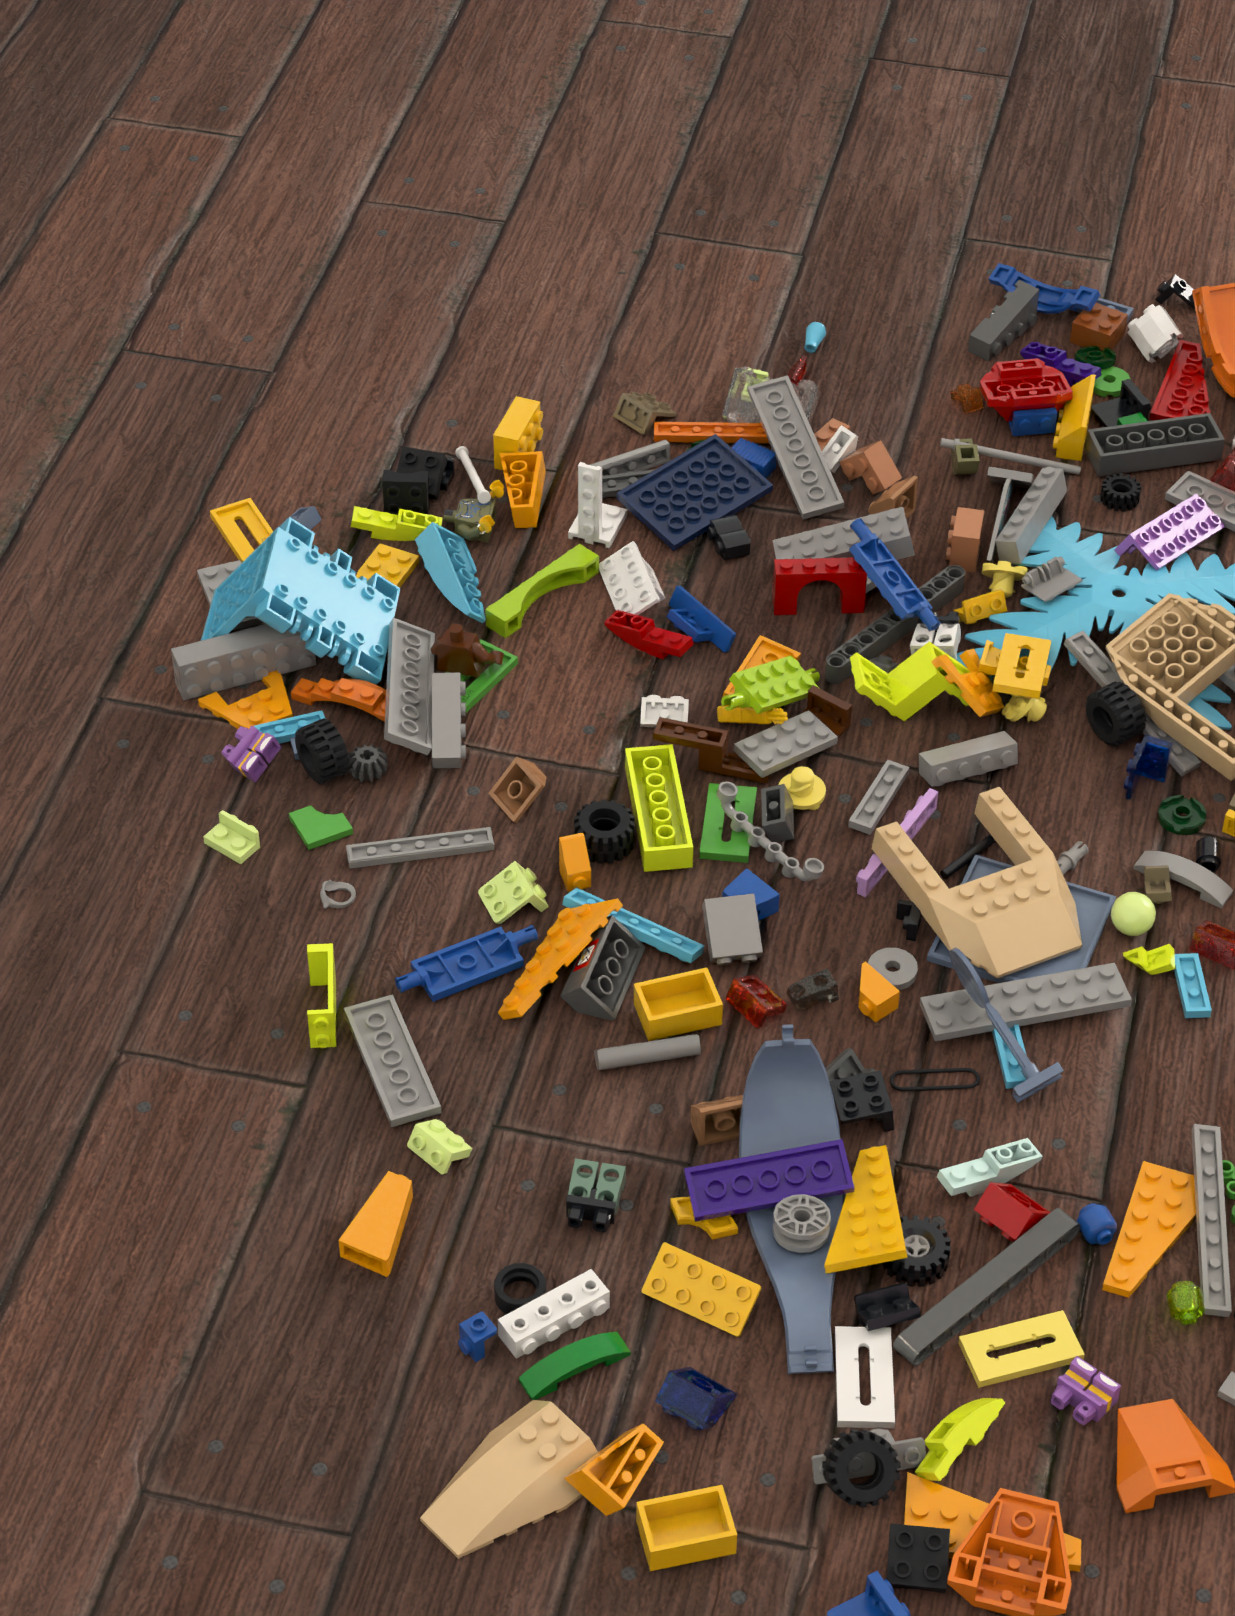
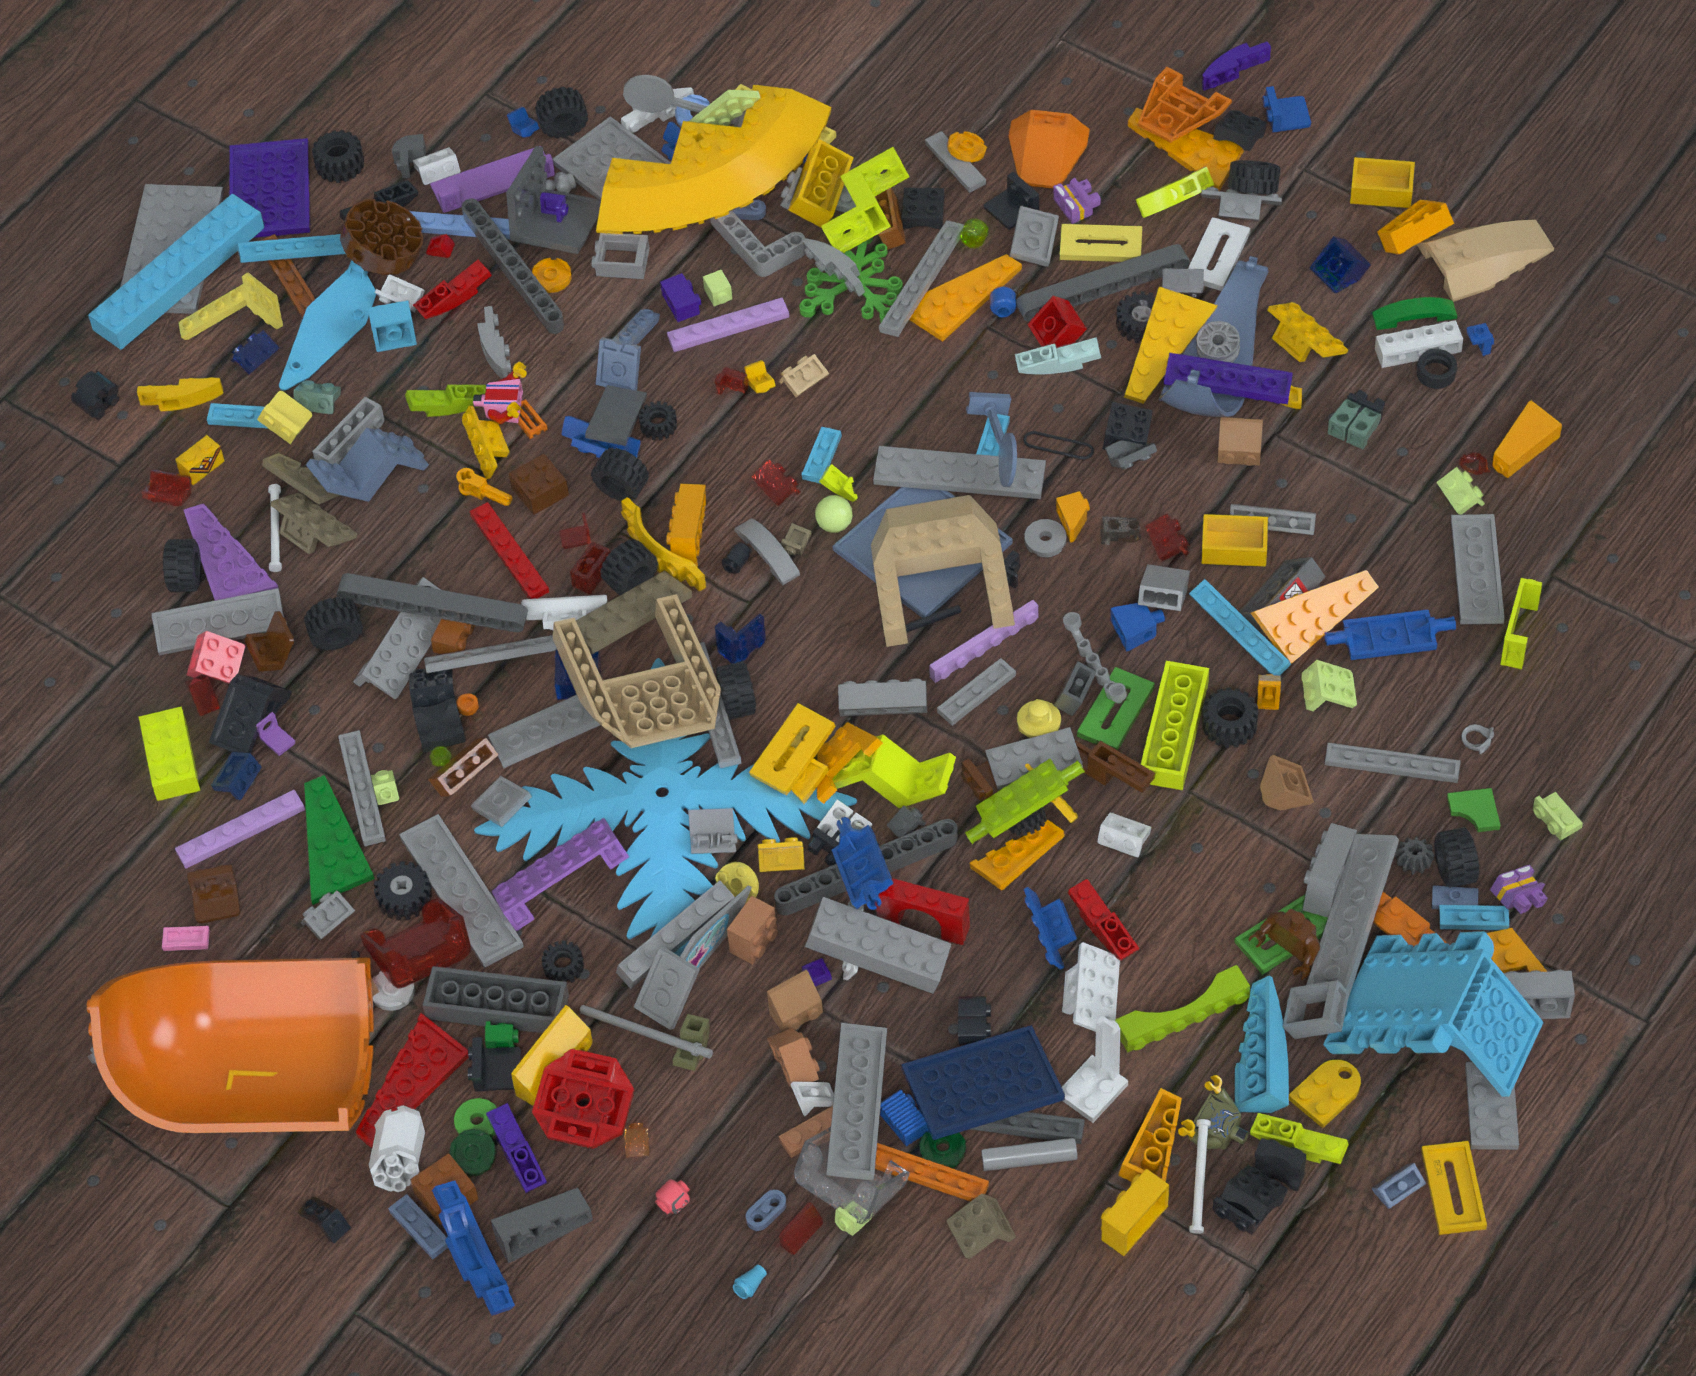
camera: 155 degrees left, 10 degrees up
(405, 587) = (1334, 1011): none -> light grey window
(422, 1185) = (1483, 465): none -> clear red piece
(830, 380) = (763, 1210): none -> sand blue plate
(912, 365) = (672, 1196): none -> coral head
(1068, 859) = (852, 589): light grey pin -> none
(1109, 1325) = (1034, 236): none -> light grey tile
(1161, 1362) = (1007, 204): none -> black bracket
(1181, 824) = (734, 616): dark green tile -> none

